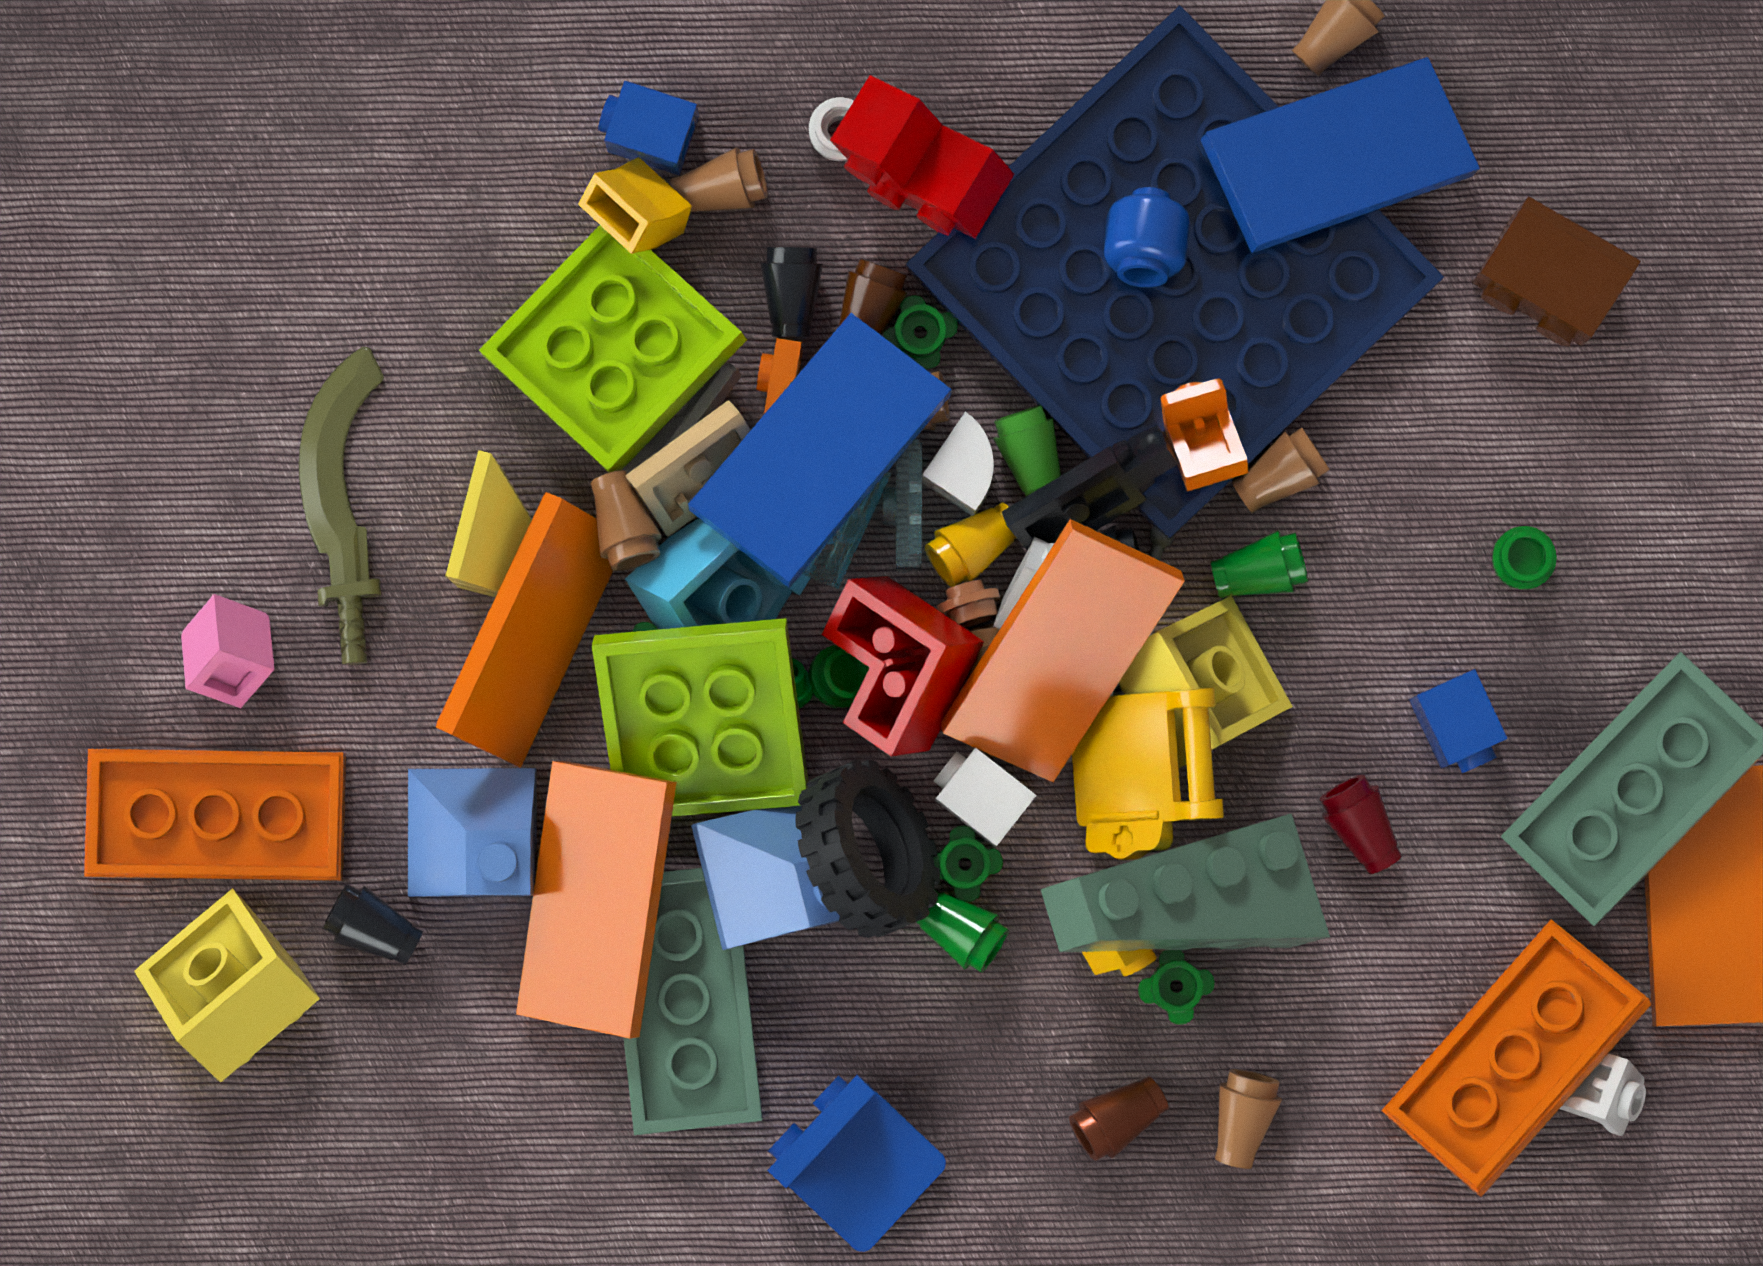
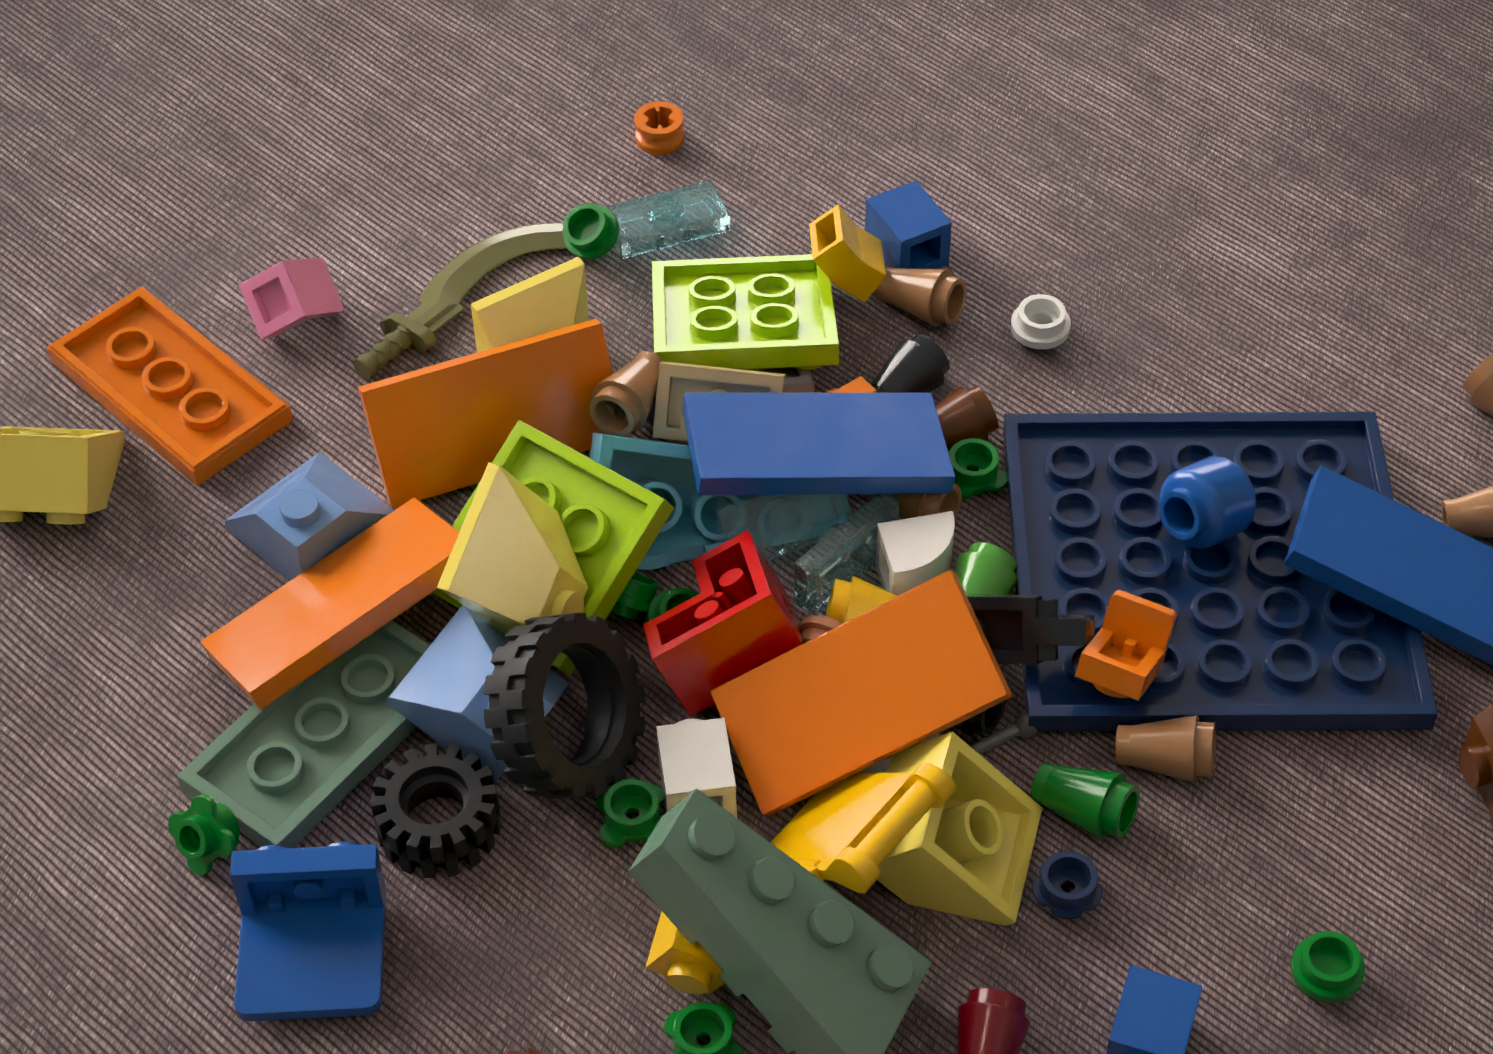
camera: 45 degrees right, 35 degrees down
(309, 197) = (669, 128): none -> orange bush
(371, 925) = (177, 509): black cone -> none
(391, 358) = (590, 231): none -> green plate
(431, 282) = (669, 218): none -> clear light blue plate
(699, 1154) = (204, 833): none -> green plate
(735, 776) = (513, 556): none -> light yellow slope
(794, 985) = (427, 779): none -> black tyre
(918, 161) = (1075, 342): red brick -> none
(965, 931) = (578, 852): green cone -> none
(1323, 646) = (1071, 870): none -> dark blue plate

